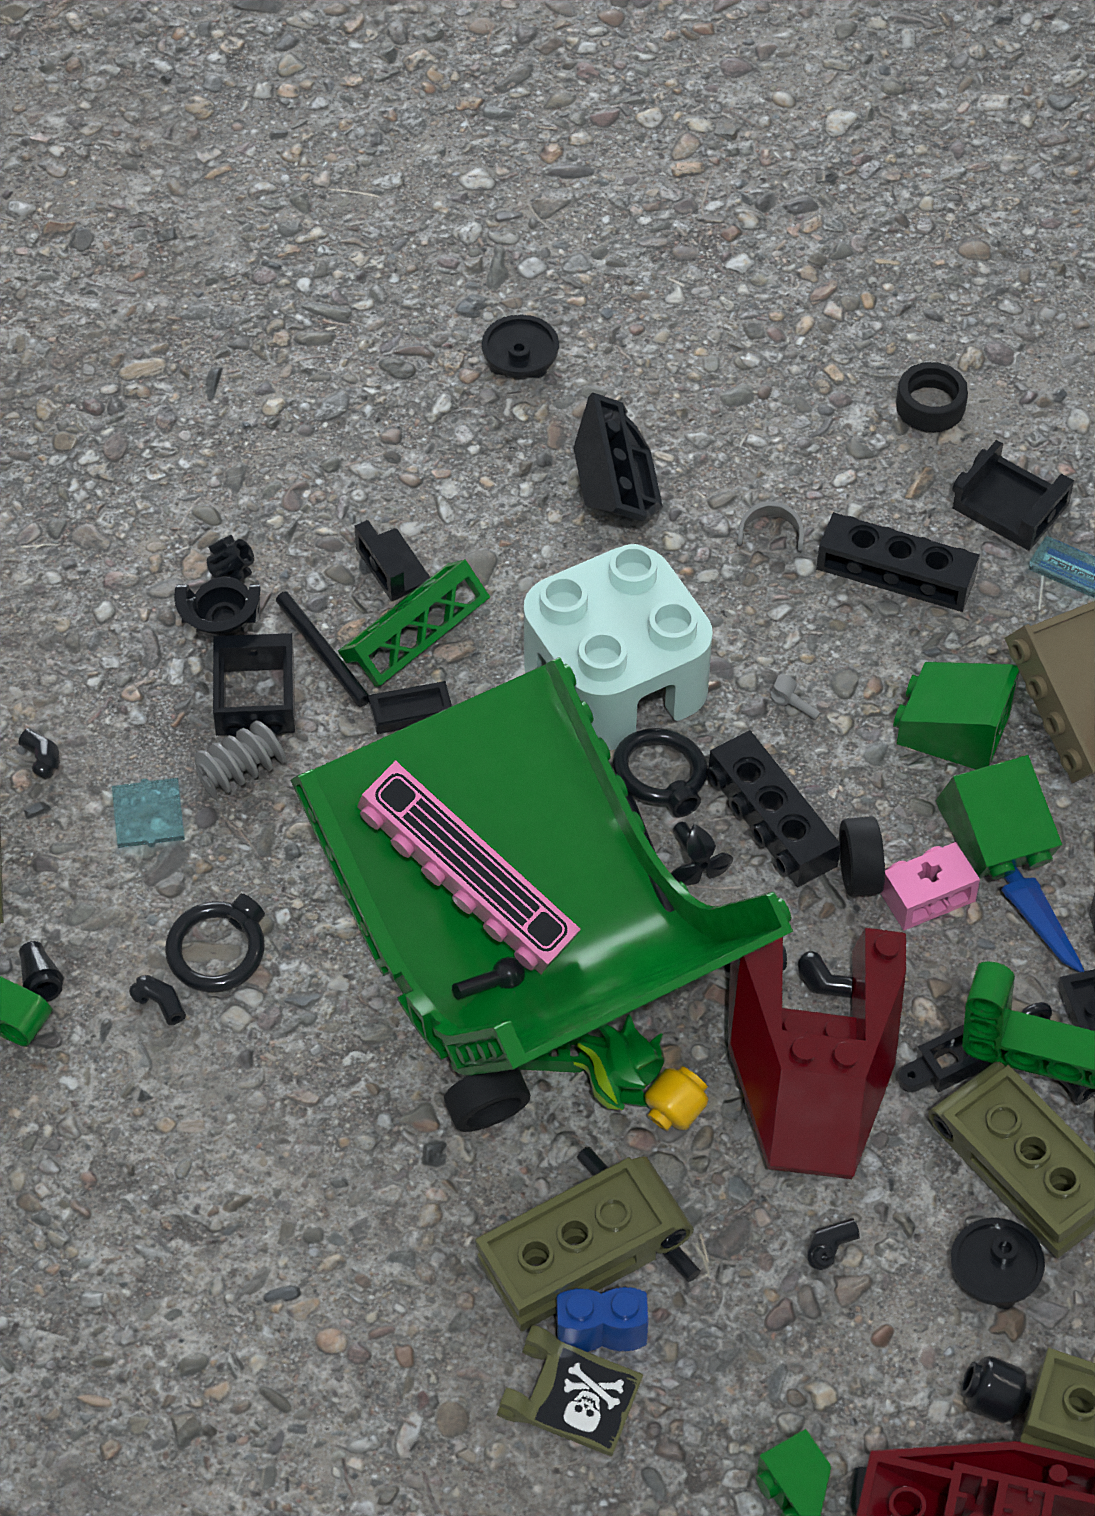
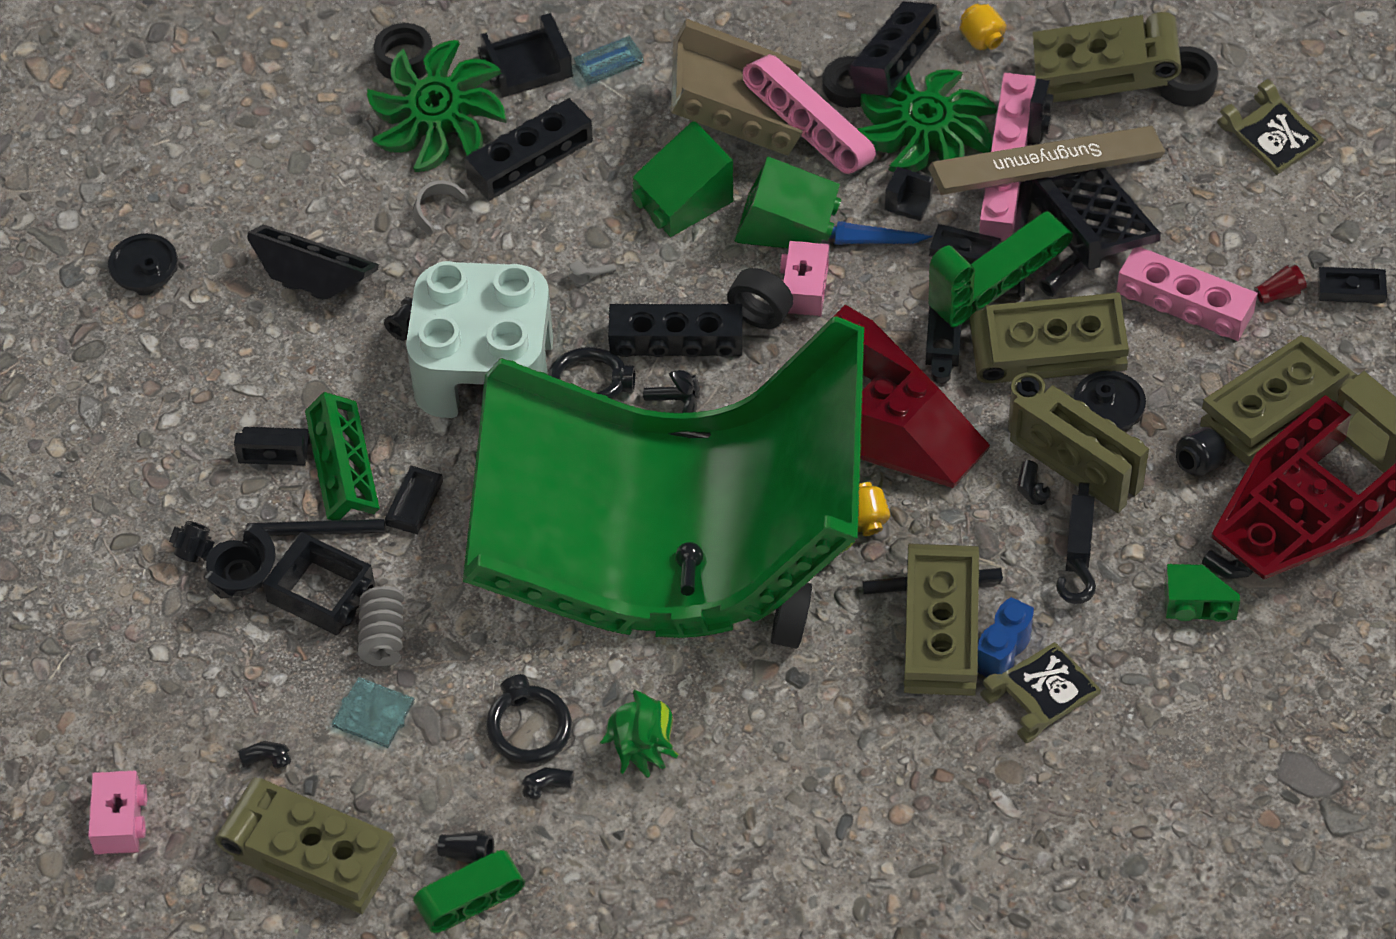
camera: 55 degrees left, 0 degrees up
(255, 1043) = (641, 732): none -> green hair
(467, 868) = (608, 519): brick -> none
(784, 1328) = (1079, 546): none -> black piece
(883, 456) = (417, 110): none -> green piece
(904, 1210) = (1076, 441): none -> olive hinge

